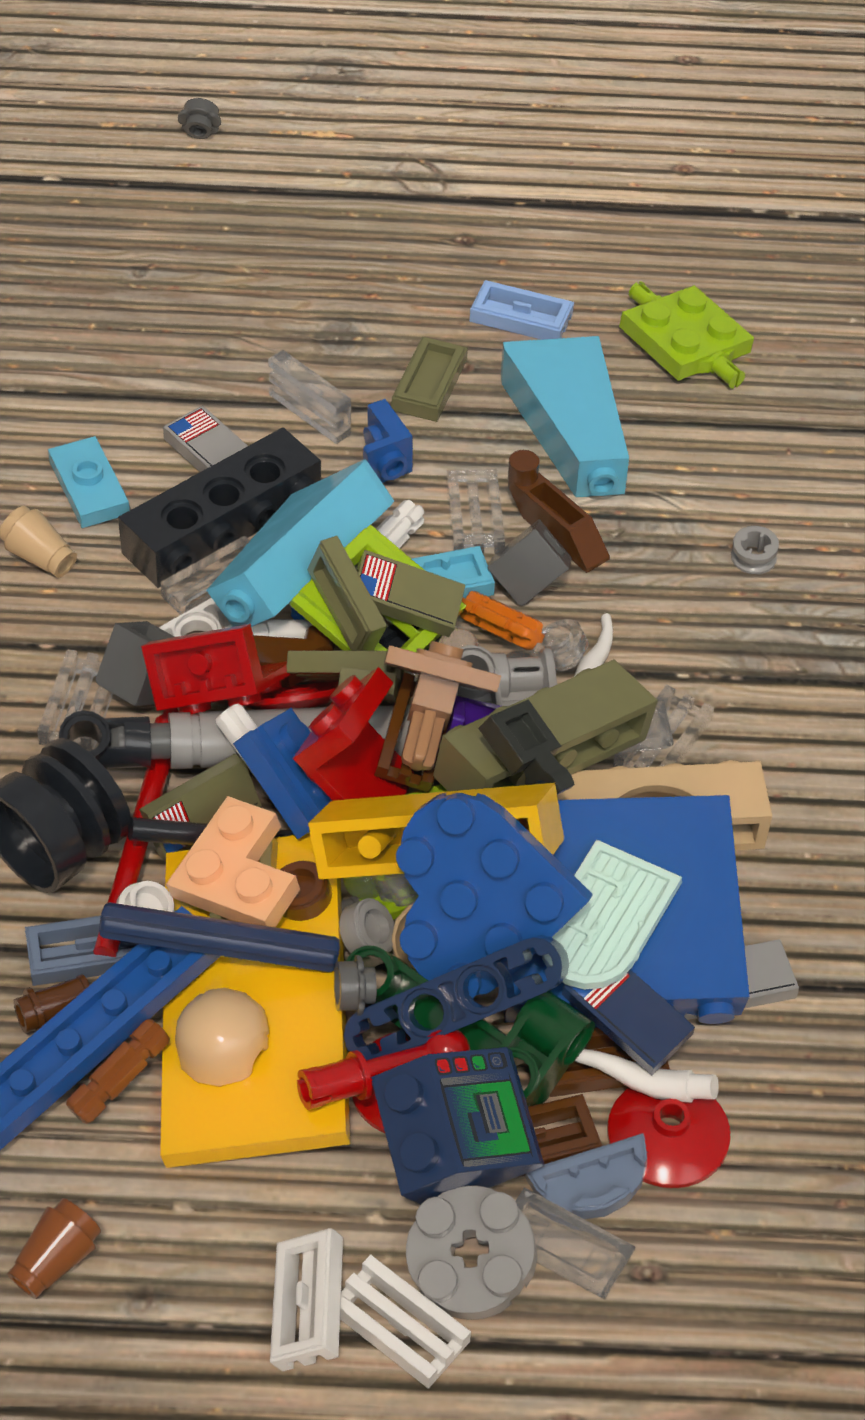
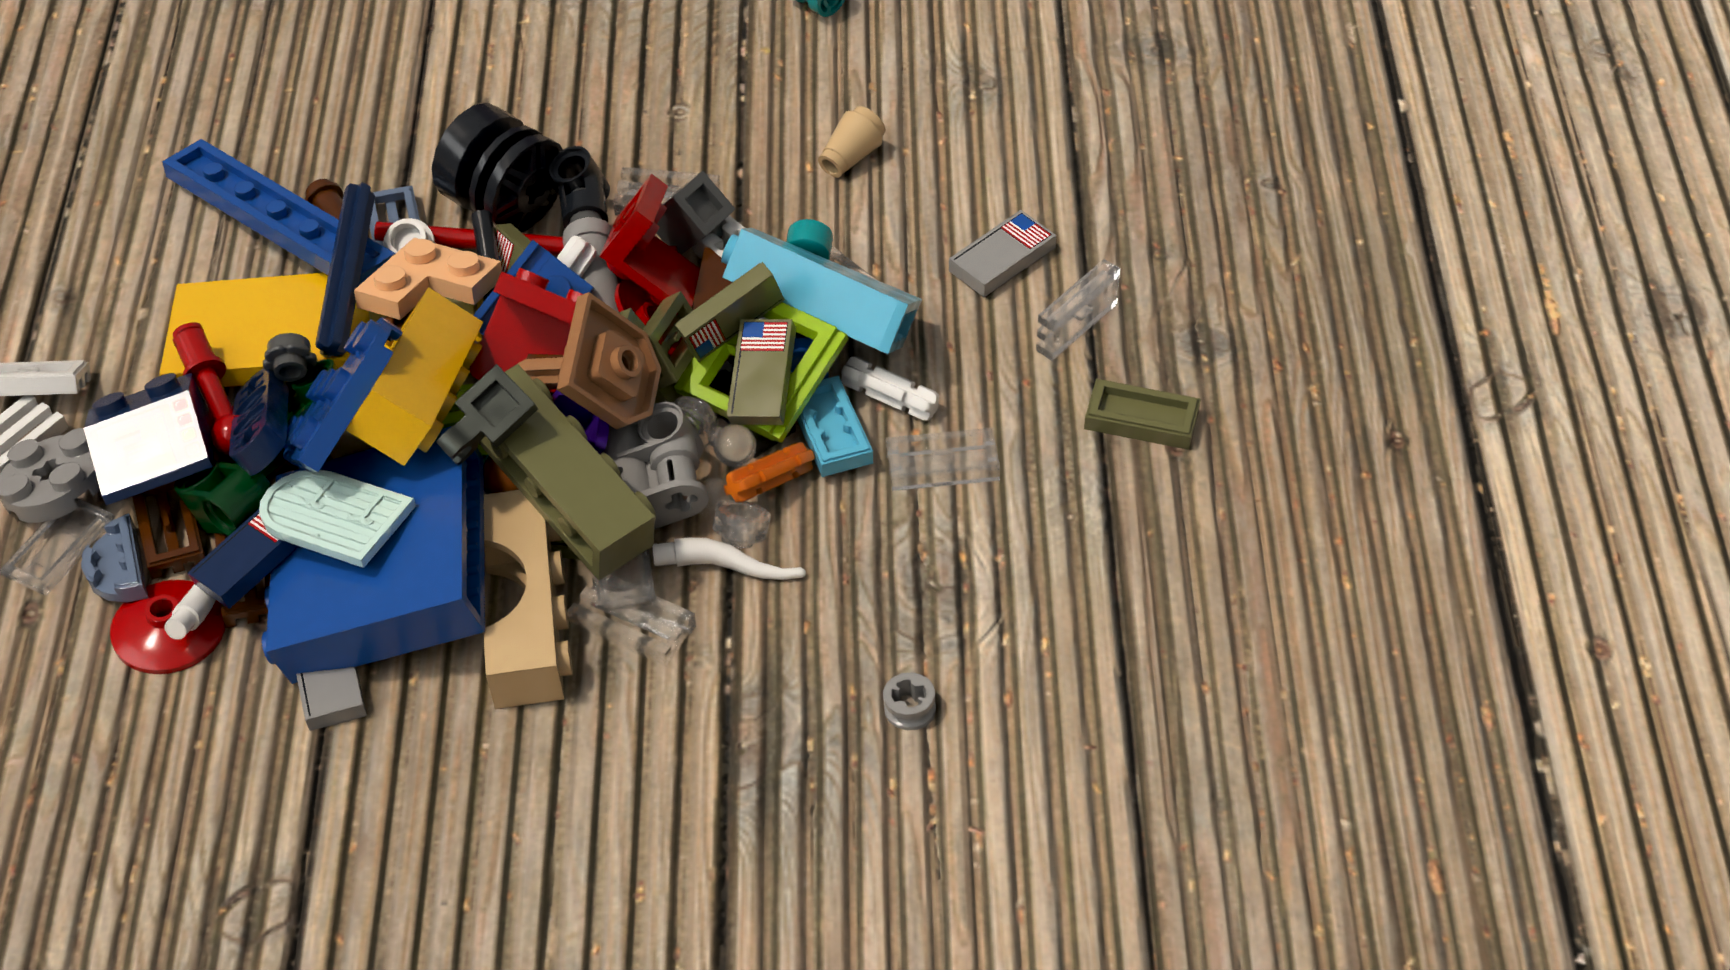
camera: 90 degrees right, 0 degrees up
(54, 1247) = (104, 233): dark orange cone -> none
(88, 481) = (944, 171): medium azure plate -> none
(117, 1071) = (257, 249): dark orange axle -> none
(200, 118) = (1522, 195): dark grey plate -> none
(207, 565) = (811, 236): none -> teal piece
(216, 506) = (913, 256): black brick -> none
(221, 1036) = (267, 291): tan hair -> none
(387, 442) = (1018, 376): blue bracket -> none
(521, 311) = (1265, 520): light blue tile -> none
(530, 563) = (858, 496): dark grey panel -> none
(562, 517) = (935, 516): reddish brown piece -> none
(571, 409) = (1093, 526): medium azure slope -> none
(687, 333) = (1263, 639): lime plate -> none

